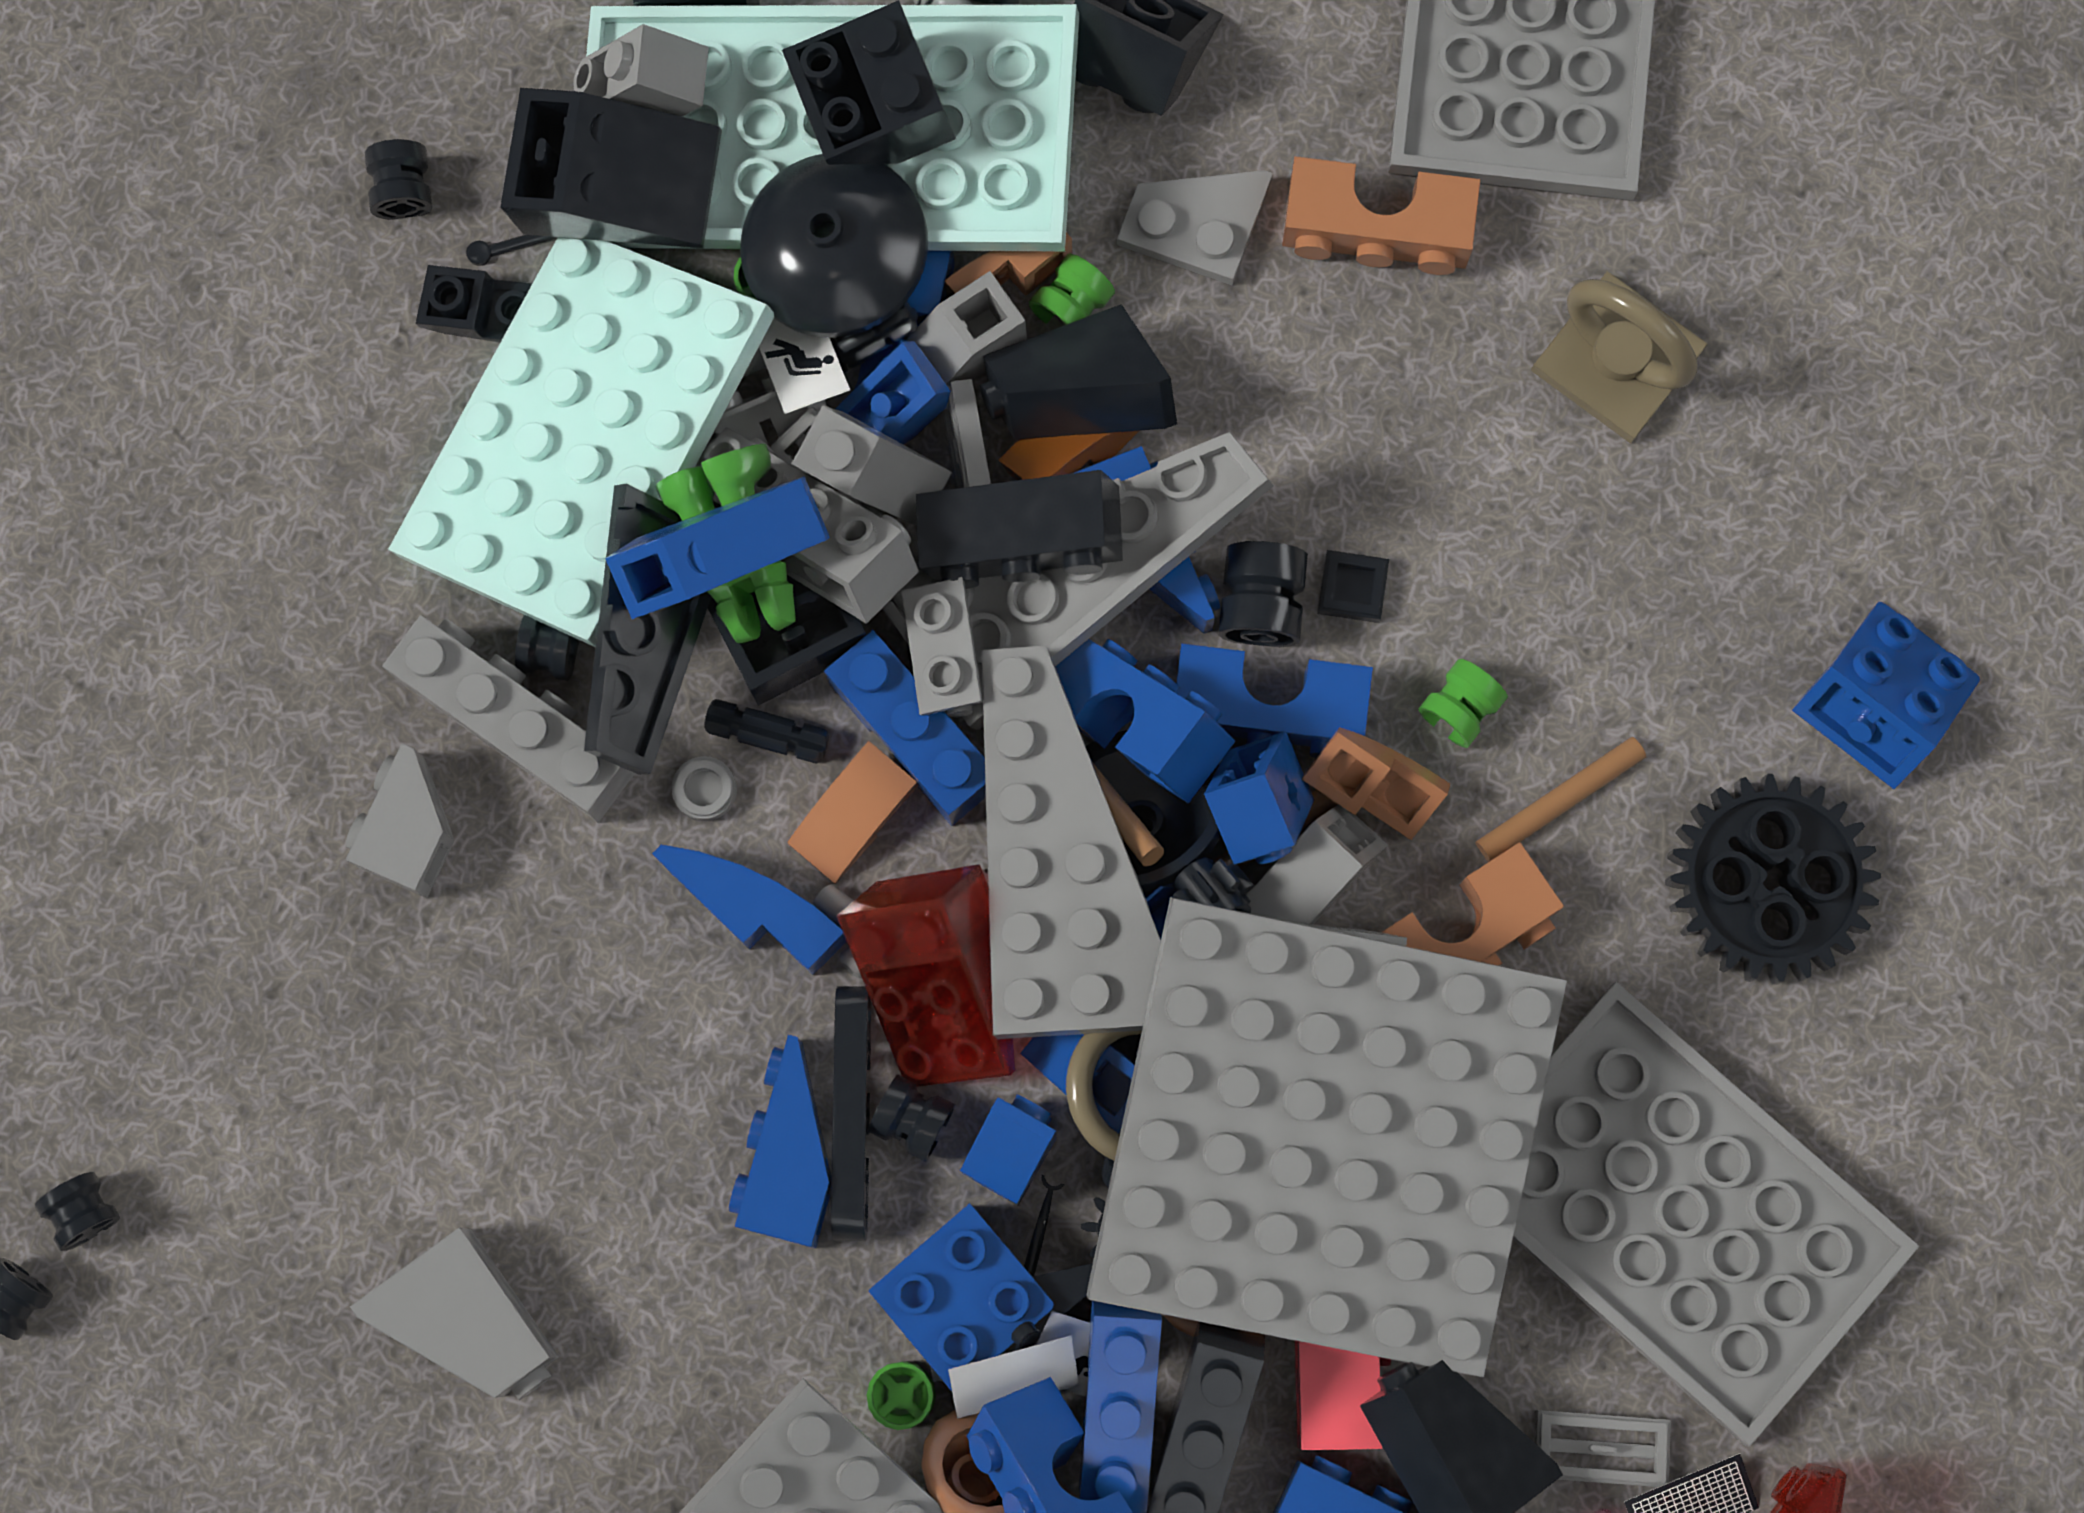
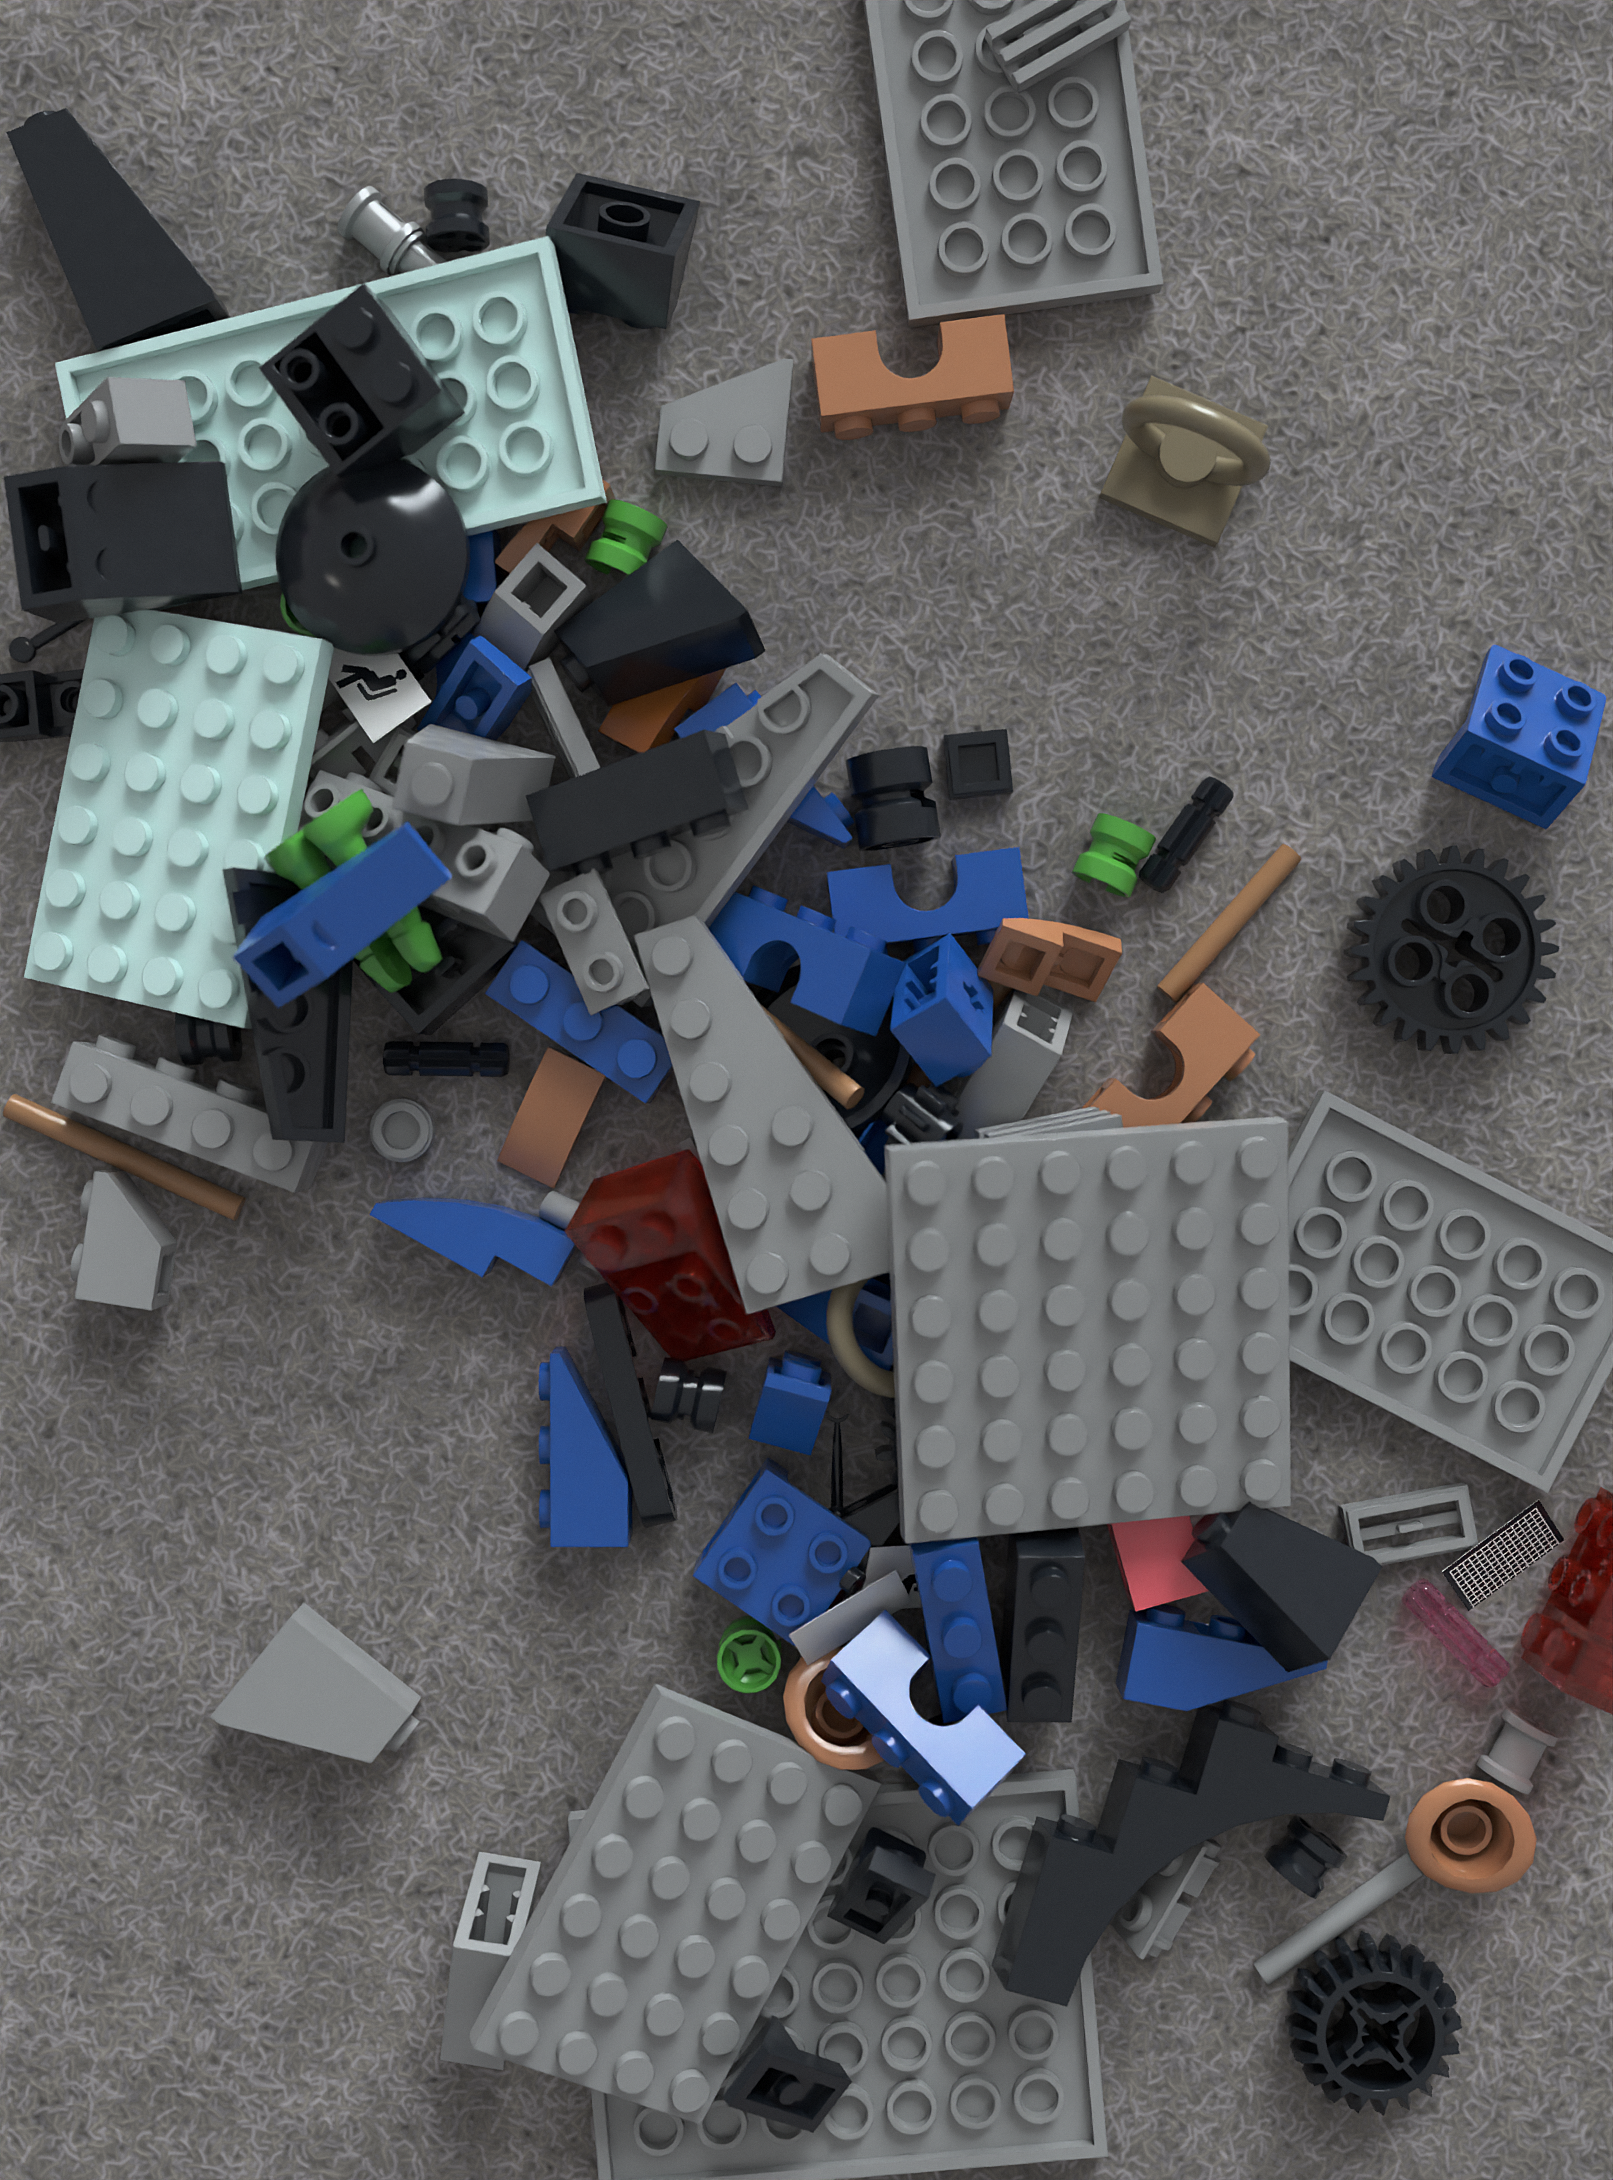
camera: 25 degrees left, 10 degrees up
(429, 745) = (124, 1156): none -> medium nougat bar
(1538, 703) = (1186, 834): none -> black axle

